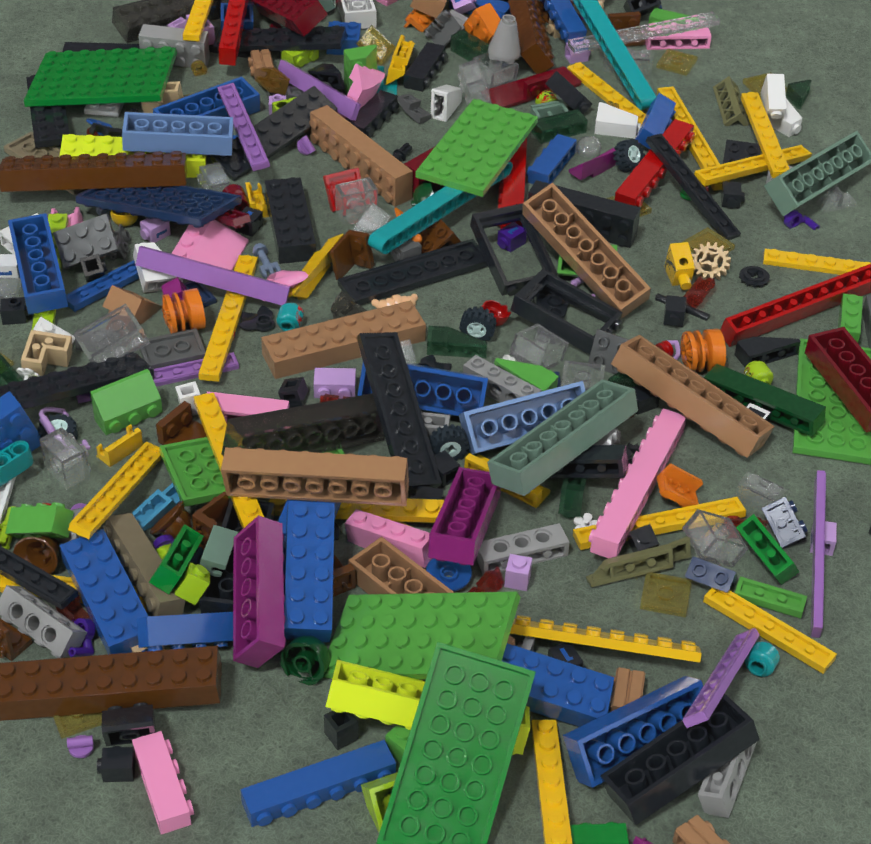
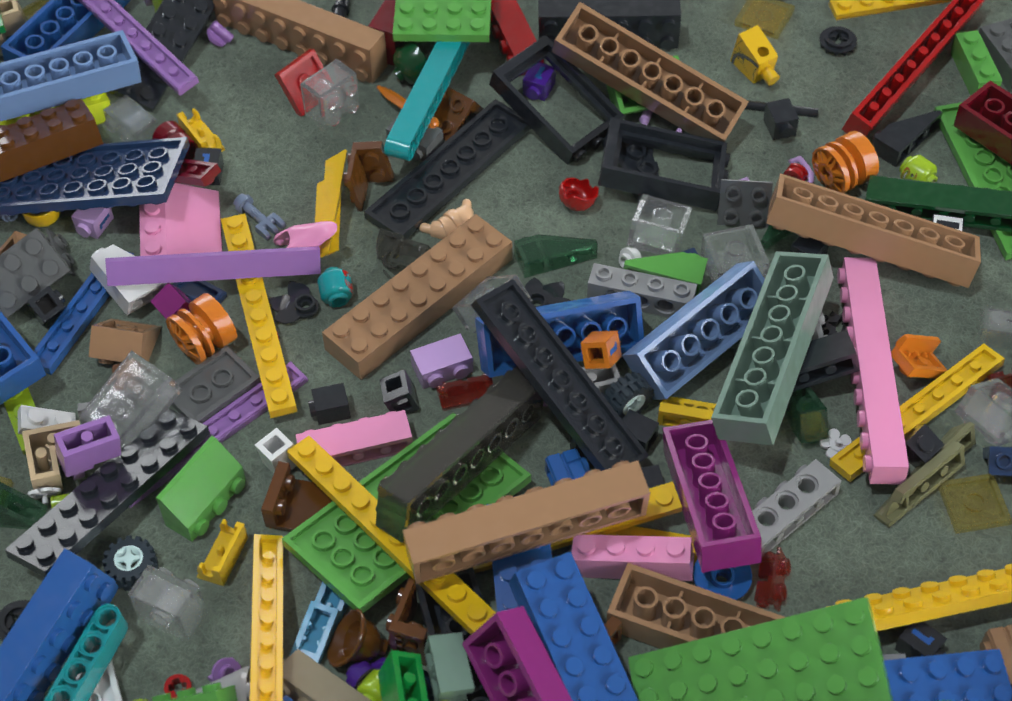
camera: 20 degrees left, 10 degrees up
(49, 427) = (119, 563): lavender piece -> none
(64, 348) = (86, 446): none -> medium lavender hinge
(243, 383) = (329, 404): none -> black brick
(290, 220) = (259, 148): black brick -> none
(371, 220) = (364, 120): clear slope -> none
(442, 403) = (601, 349): none -> orange brick
(478, 323) = (570, 217): black wheel -> none
(518, 572) = (802, 543): lavender brick -> none
(699, 291) = (792, 81): clear red hinge -> none
(711, 258) = (780, 29): tan gear -> none

